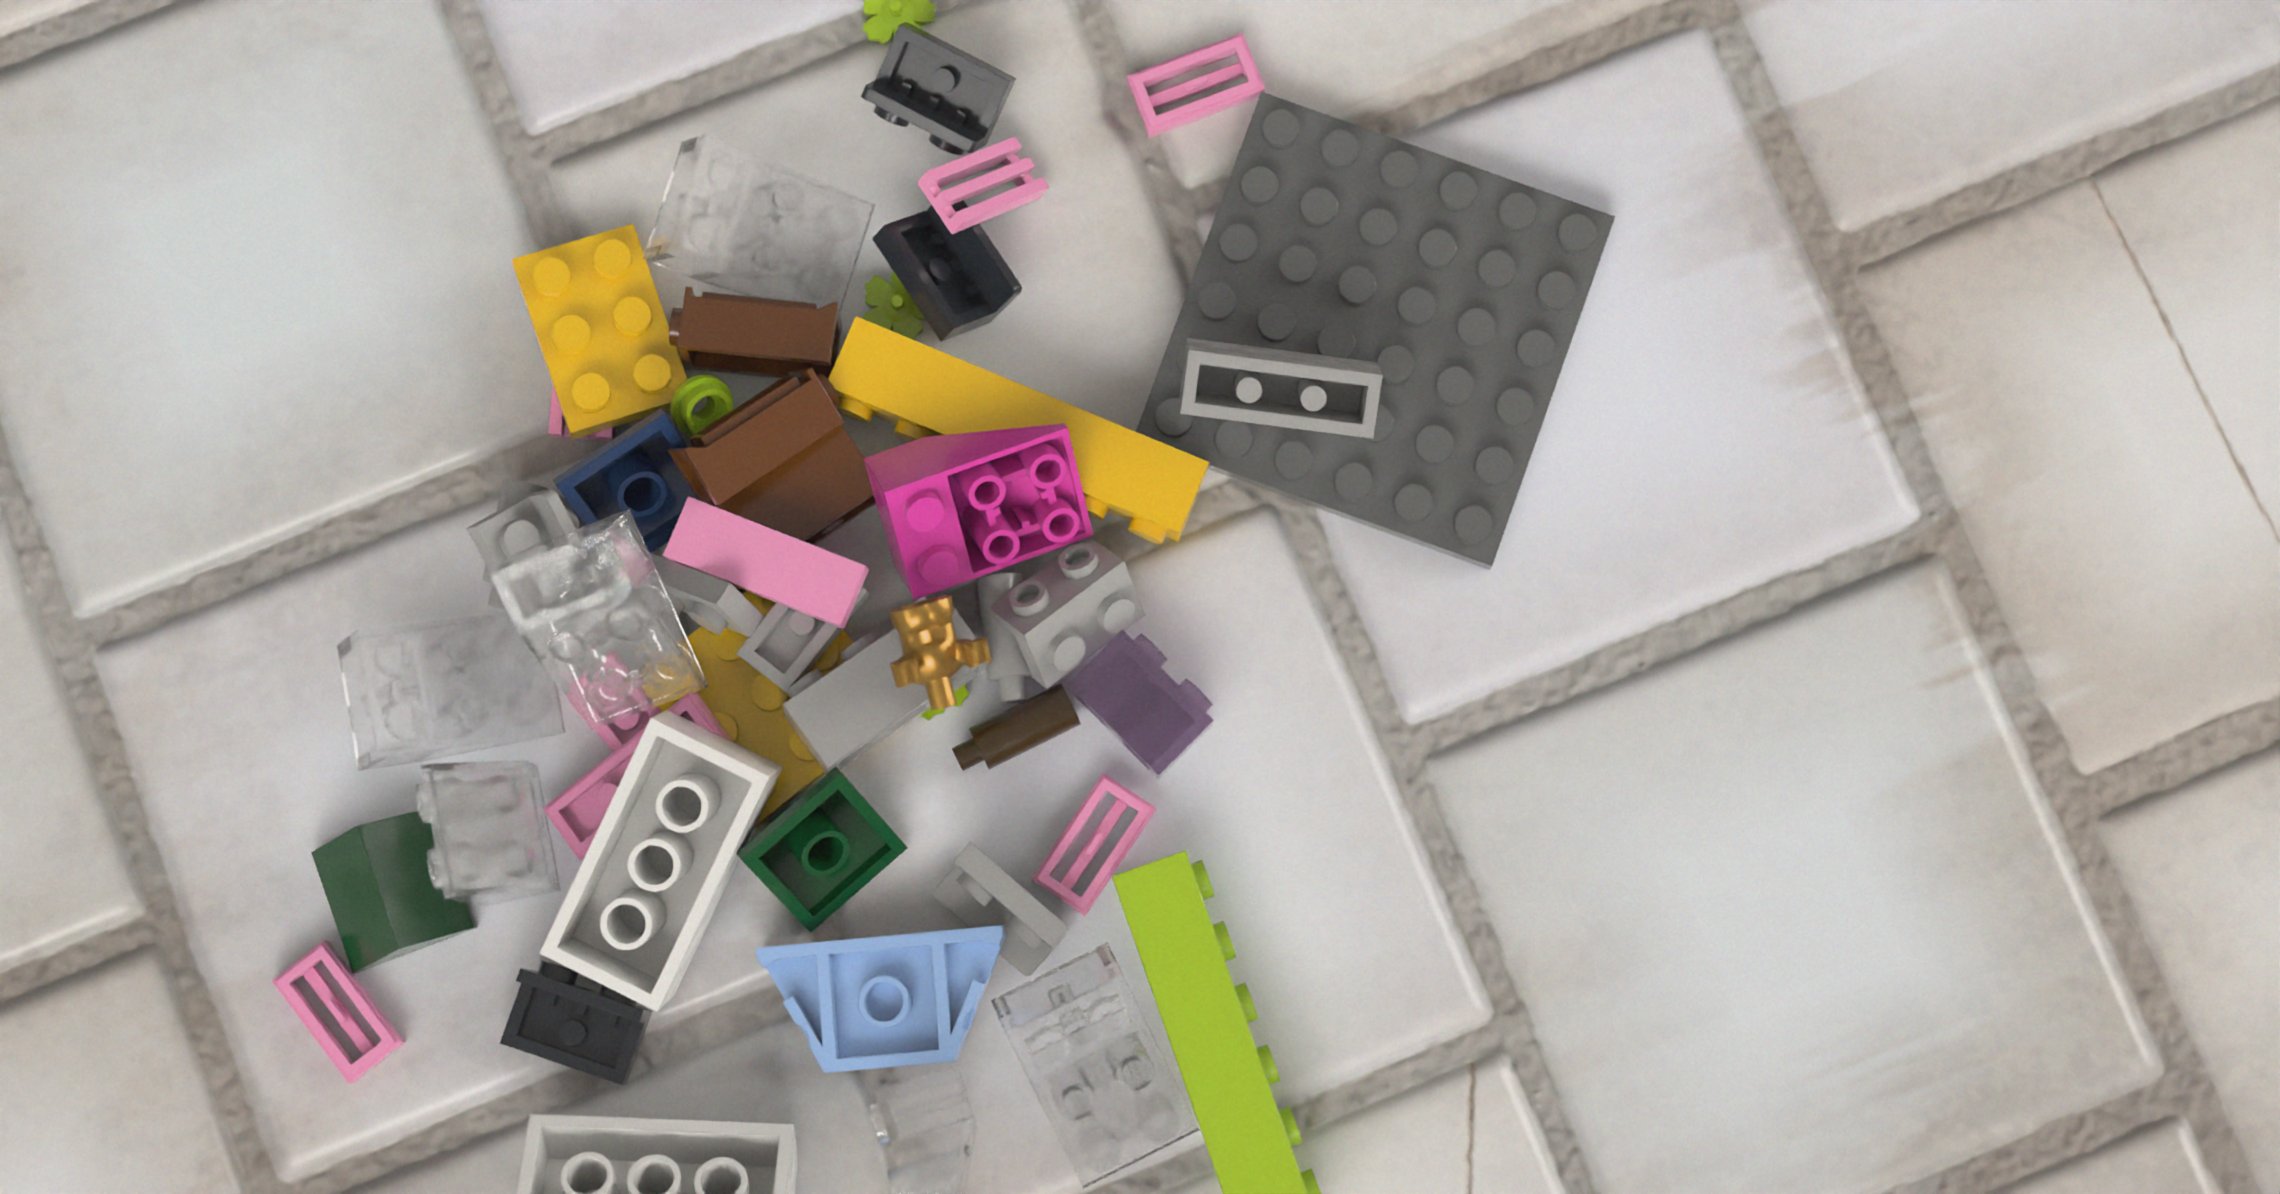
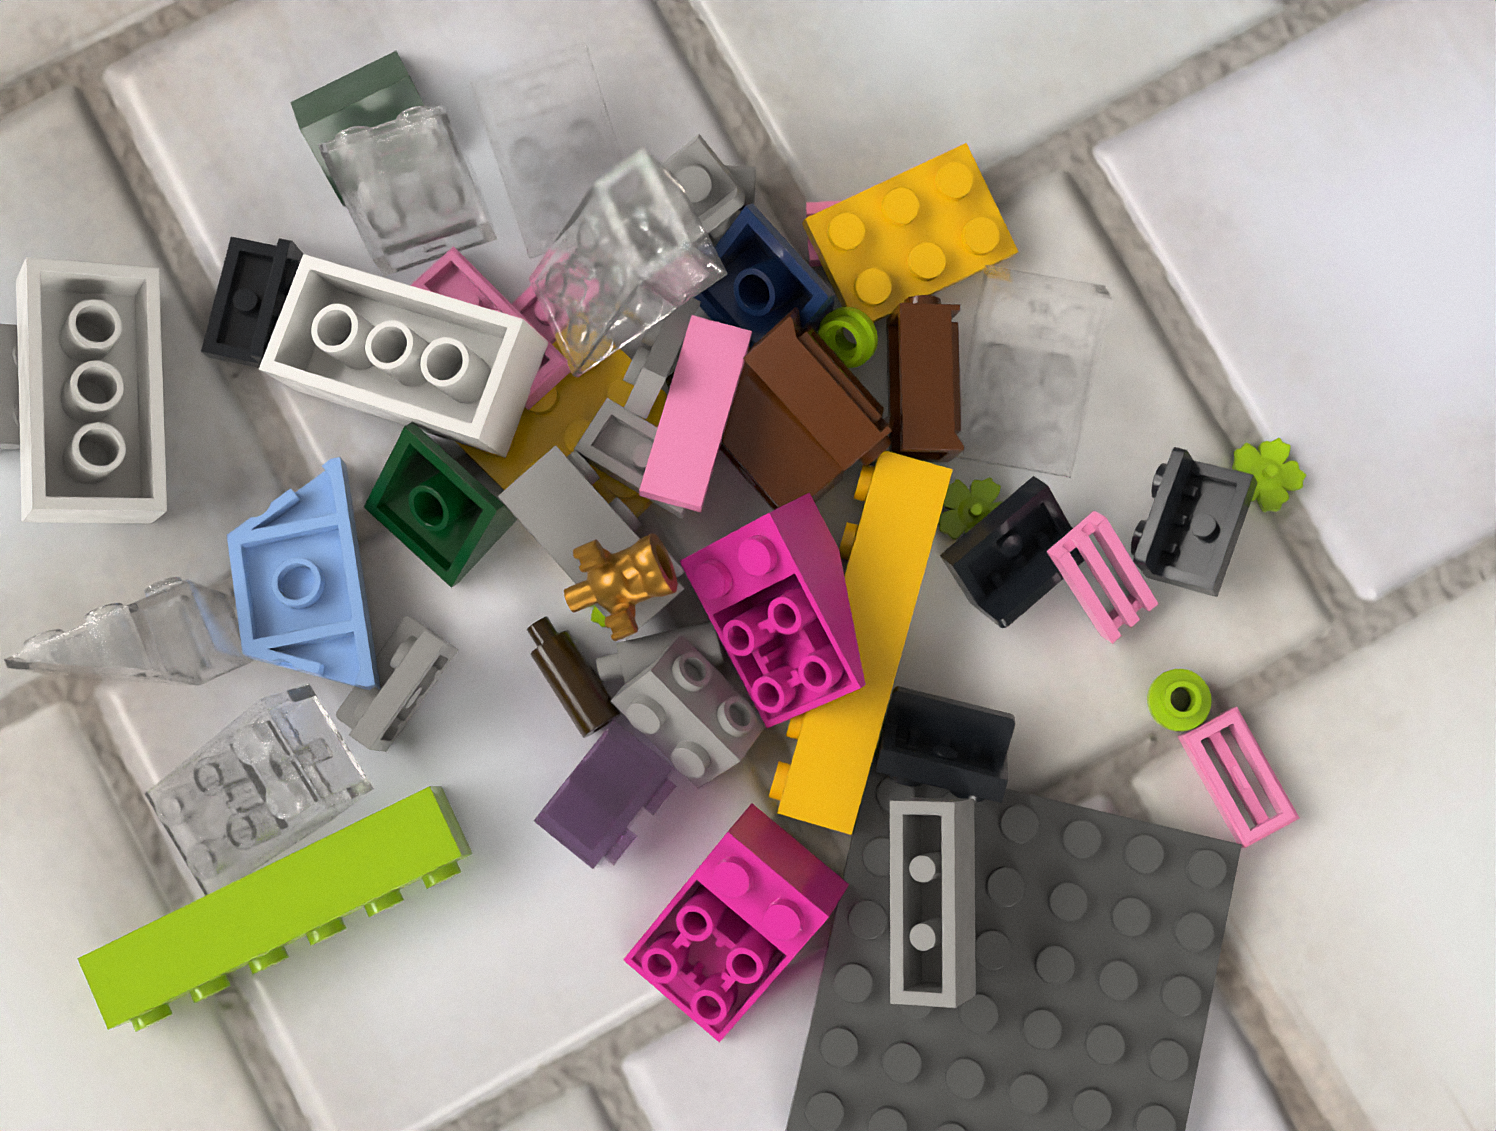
camera: 90 degrees right, 0 degrees up
(358, 994) = (261, 102): bright pink tile -> none
(1064, 889) = (517, 788): bright pink tile -> none
(1113, 148) = (1160, 700): none -> lime plate
(1131, 360) = (945, 745): none -> black bracket
(1282, 590) = (737, 922): none -> dark pink slope

